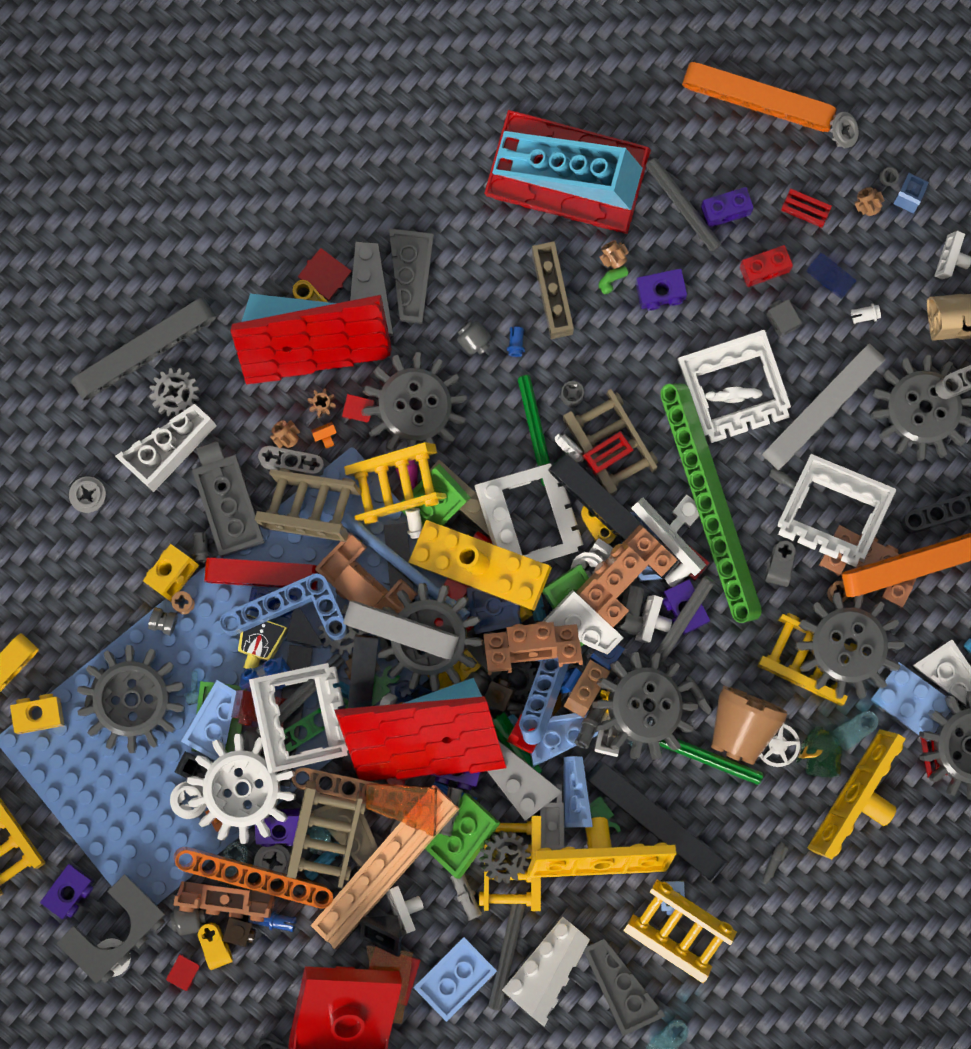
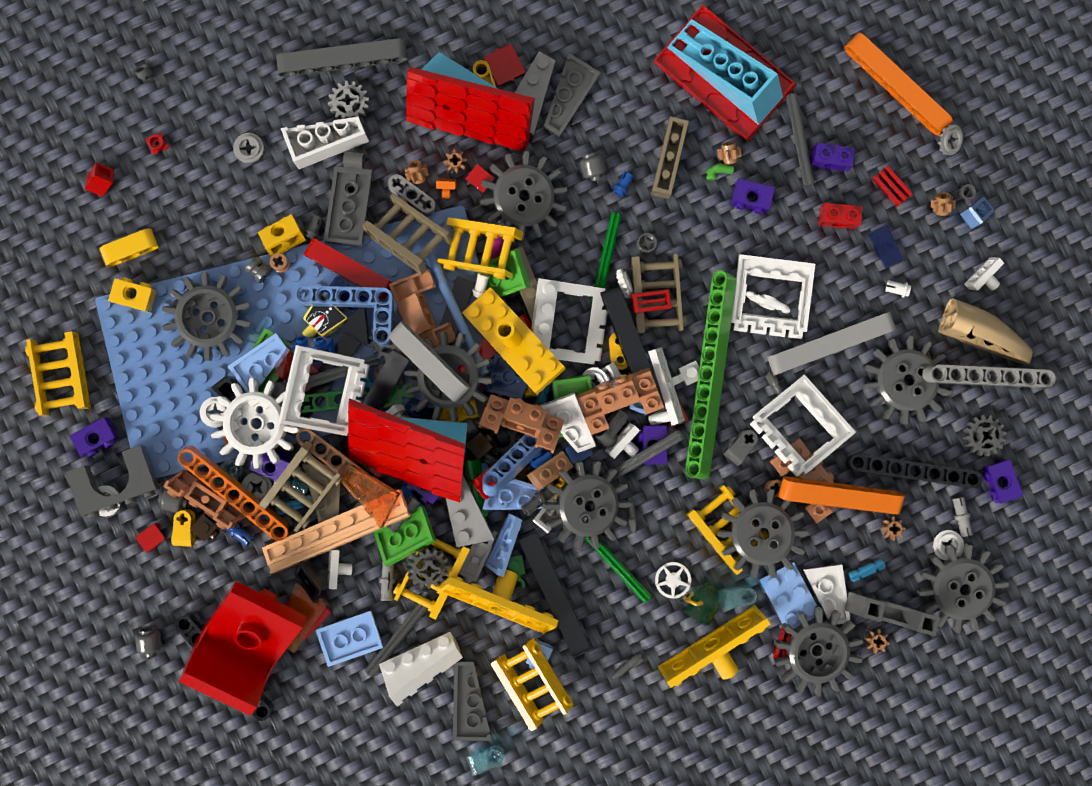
camera: 20 degrees right, 5 degrees up
(745, 724) = (655, 554): medium nougat cone -> none
(783, 317) = (834, 261): dark grey brick -> none

